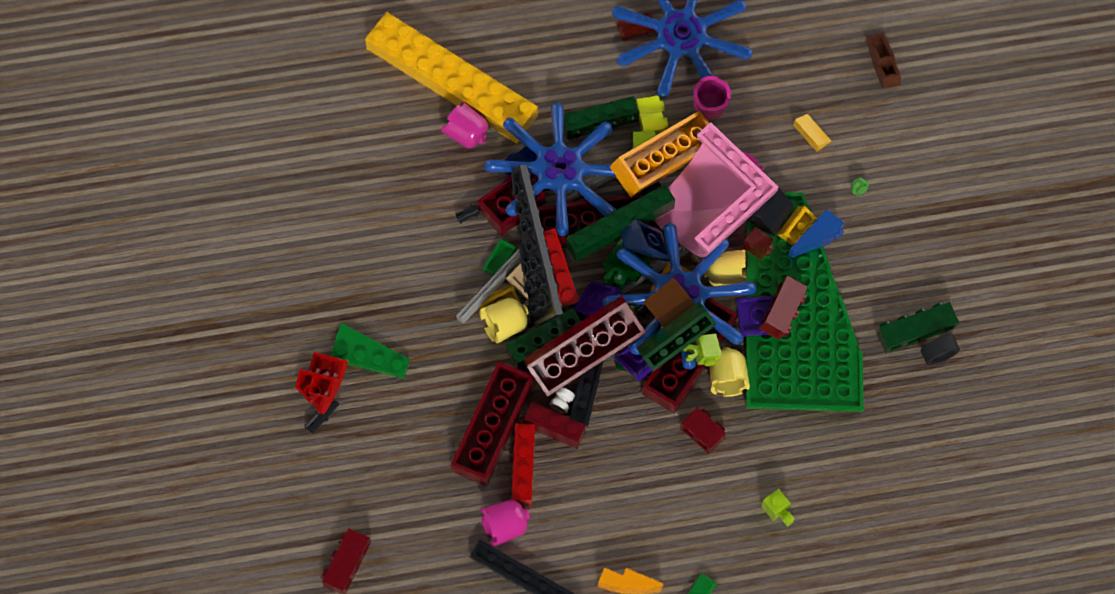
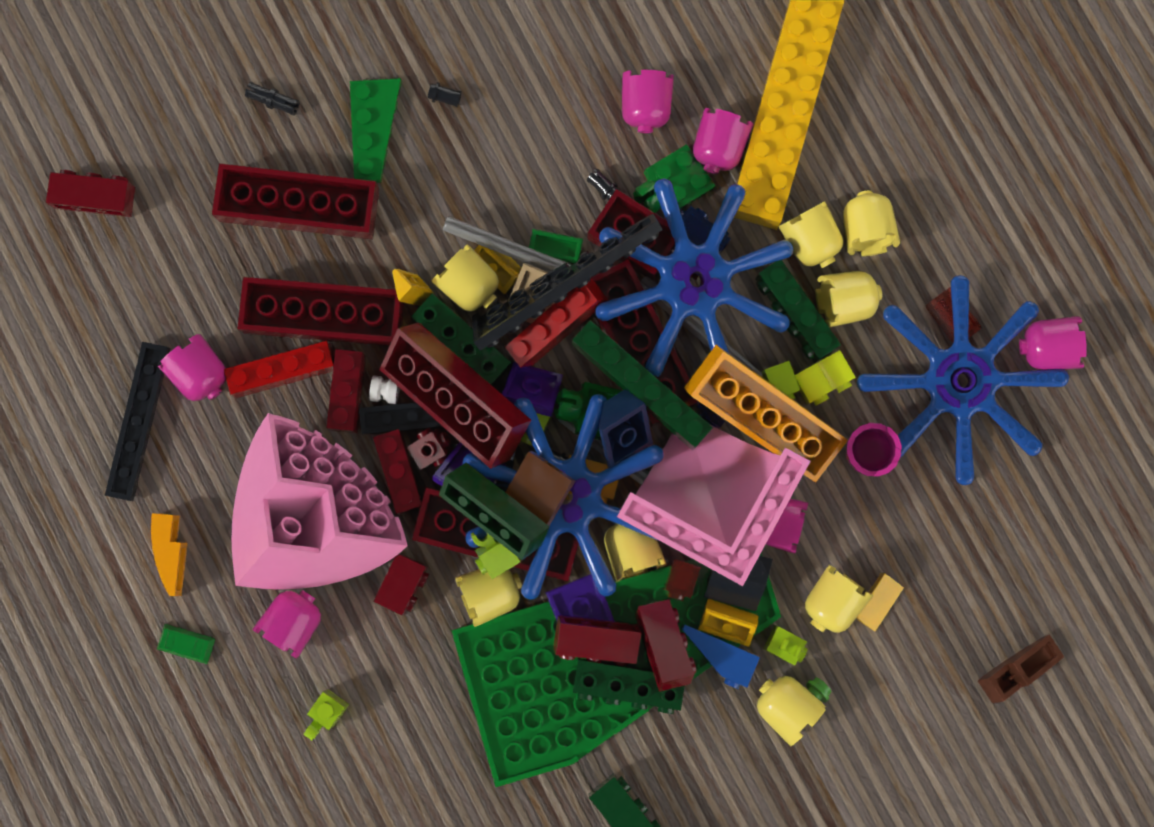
camera: 70 degrees right, 15 degrees up
(322, 380) = (313, 80): red slope -> none
(363, 298) = (444, 94): none -> black pin
(406, 417) = (295, 201): none -> dark red brick
(420, 164) = (646, 99): none -> dark pink cylinder
(473, 166) = (685, 174): none -> green plate
(497, 355) = (410, 287): none -> yellow slope
(552, 89) = (814, 236): none -> light yellow cylinder
(557, 53) = (870, 224): none -> light yellow cylinder
(602, 83) = (847, 297): none -> light yellow cylinder
(621, 380) = (431, 448): none -> dark red brick
(624, 407) = (398, 471): none -> dark red brick
(633, 473) = (307, 513): none -> bright pink brick
(707, 510) = (290, 621): none -> dark pink cylinder
(800, 264) = (665, 645): none -> dark red brick
(803, 154) = (835, 601): none -> light yellow cylinder
(819, 299) = (624, 684): none -> dark green brick
(823, 196) = (786, 645): none -> lime brick
(866, 205) = (788, 707): none -> light yellow cylinder

